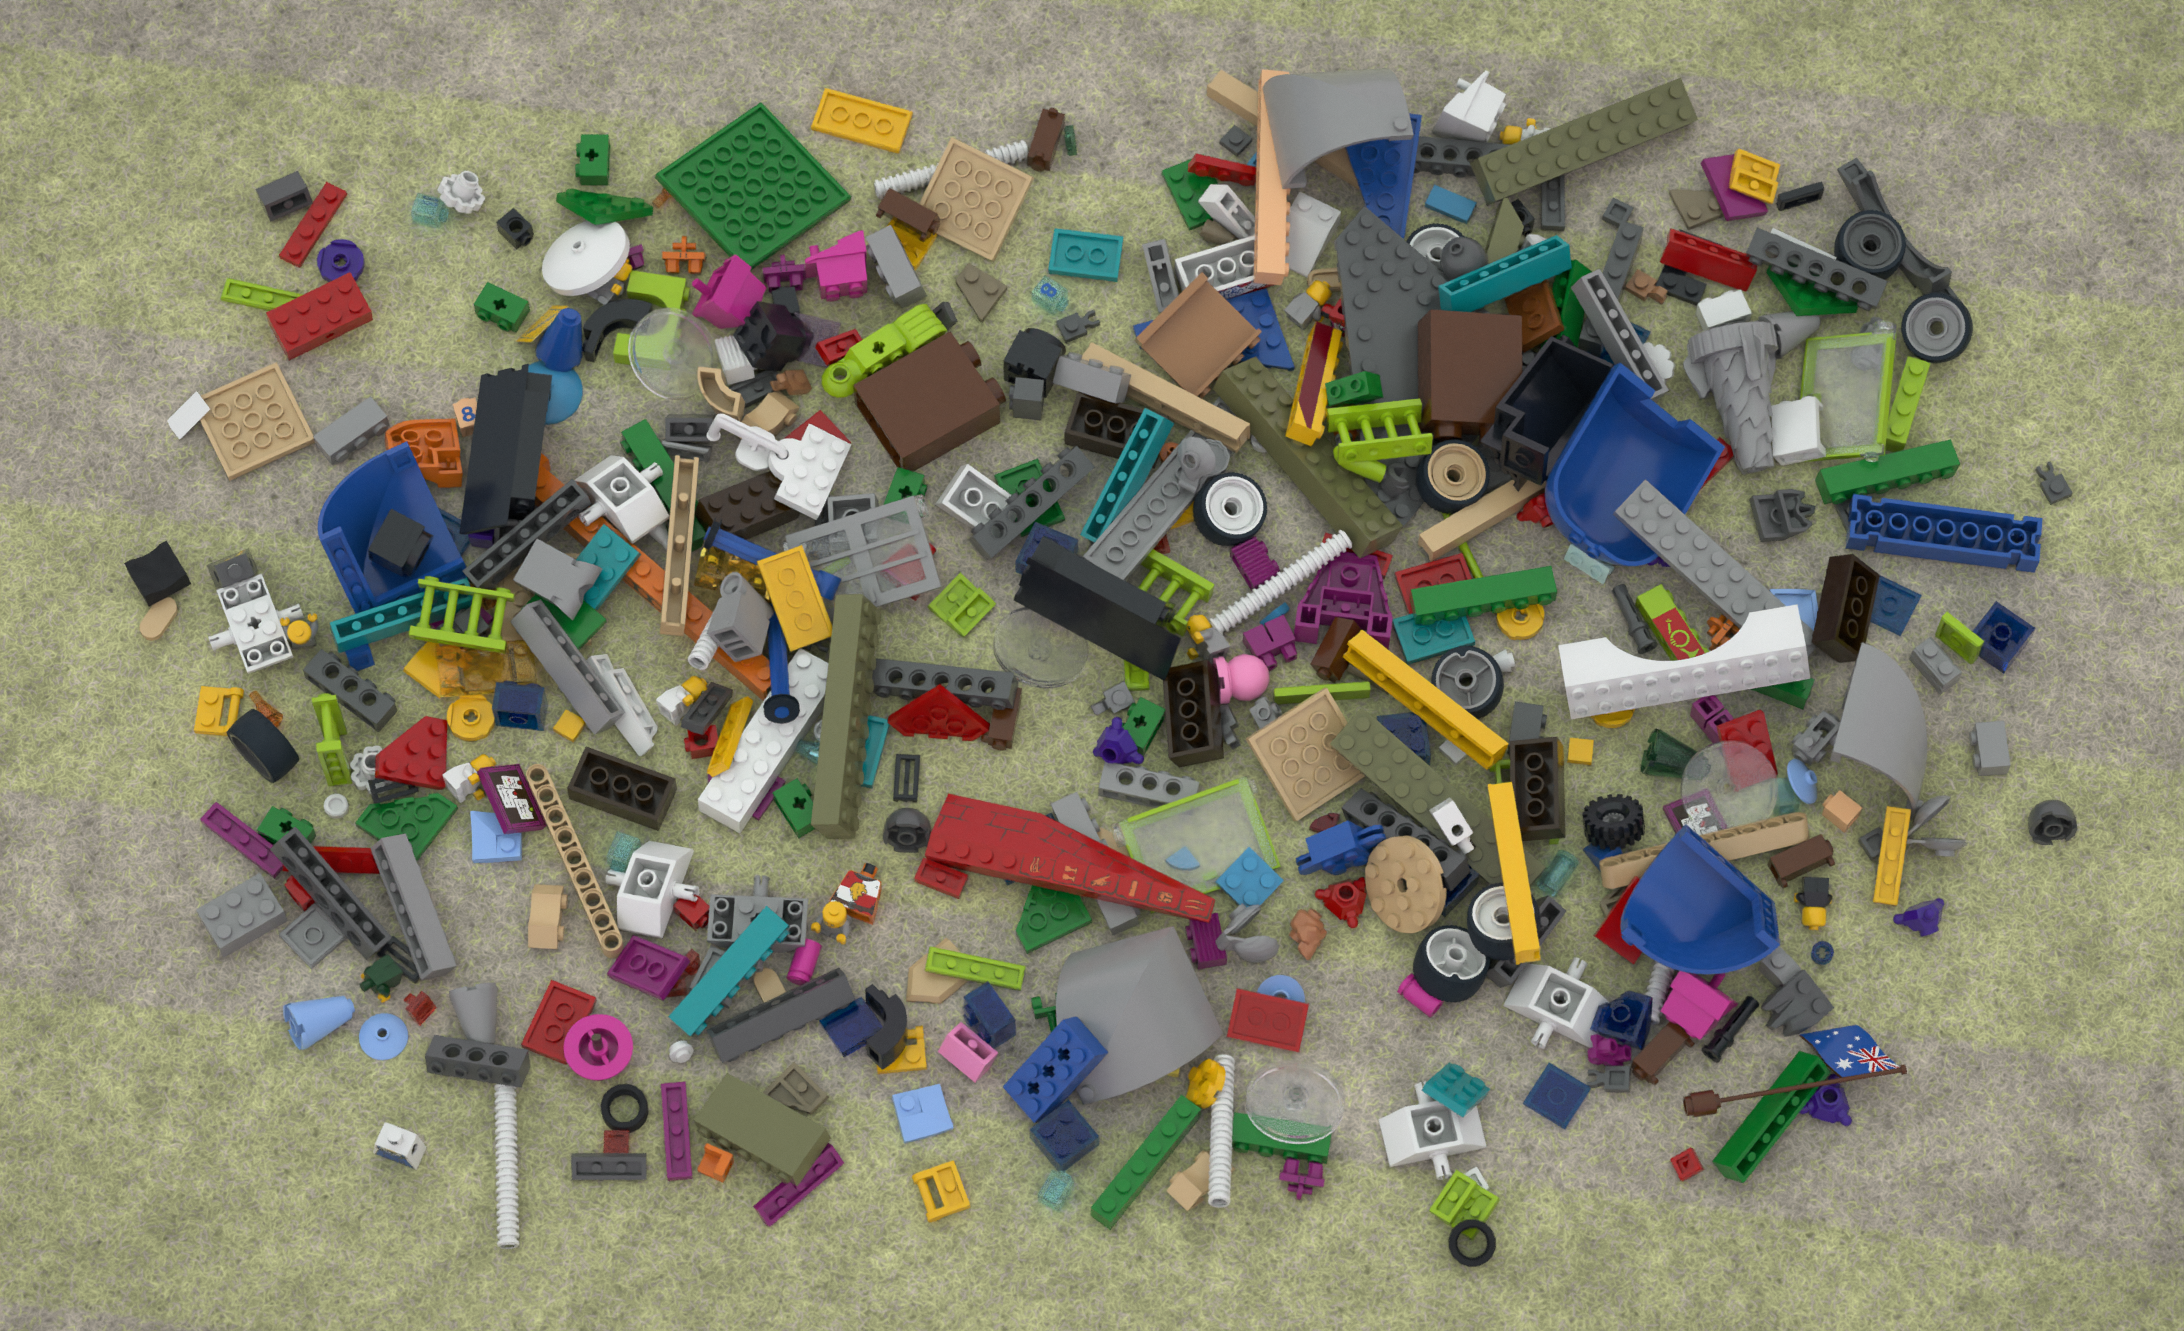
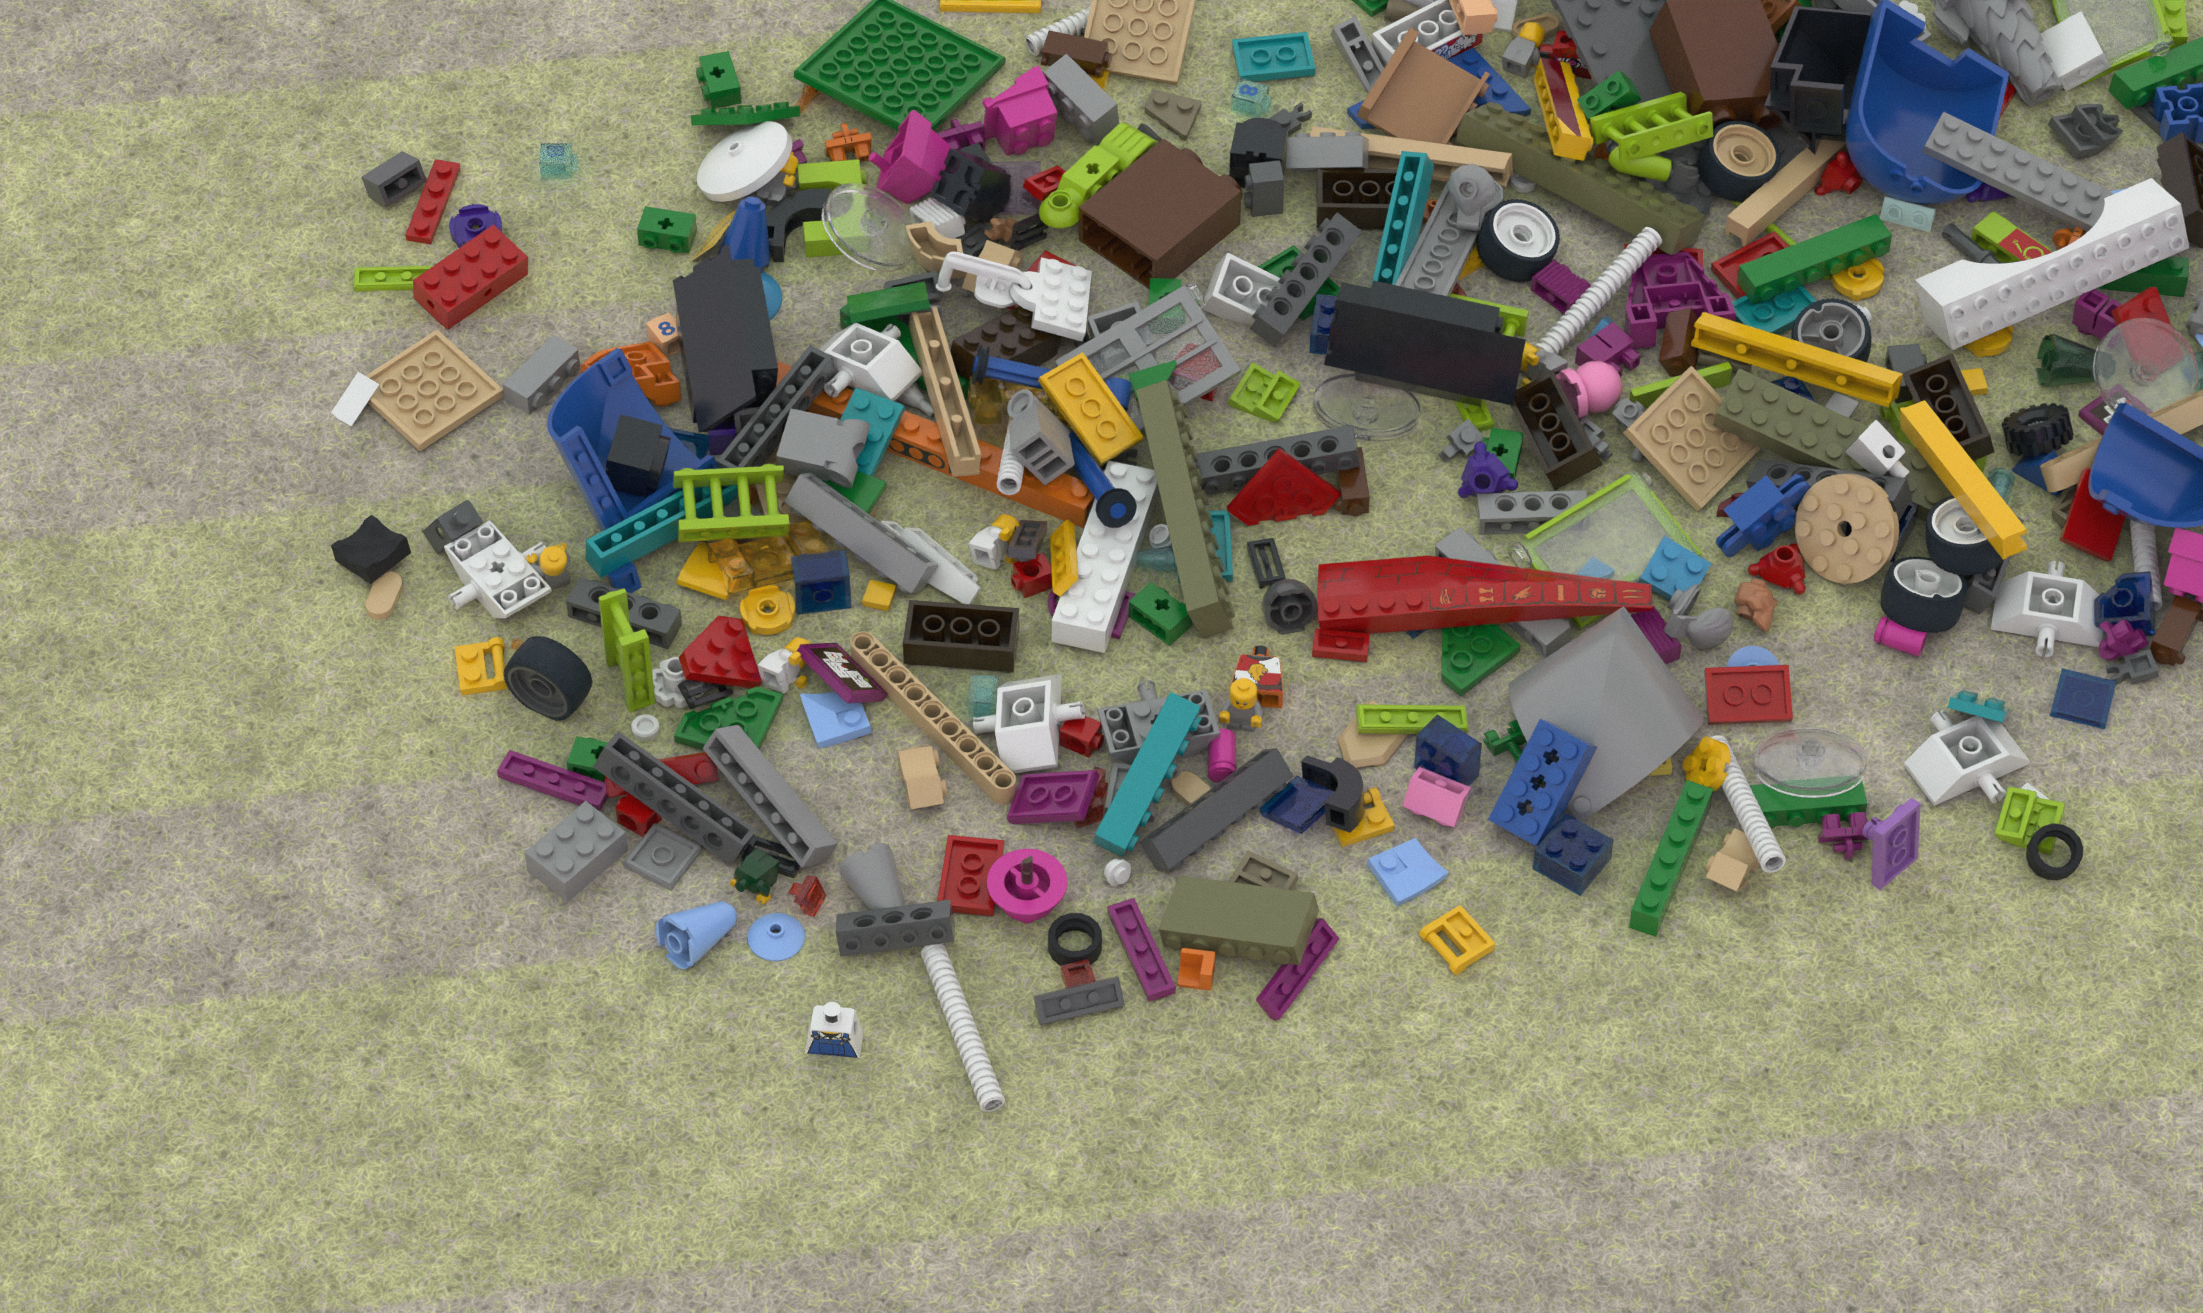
camera: 15 degrees left, 15 degrees down
(462, 192) = (588, 132): white plant -> none
(511, 221) = (656, 157): black brick -> none
(659, 442) = (888, 302): none -> green tile
(806, 392) = (1029, 235): none -> black tile
(860, 578) = (1151, 375): none -> green tile
(1056, 1190) = (1583, 908): clear light blue brick -> none
(1332, 1204) = (1894, 842): none -> medium lavender plate

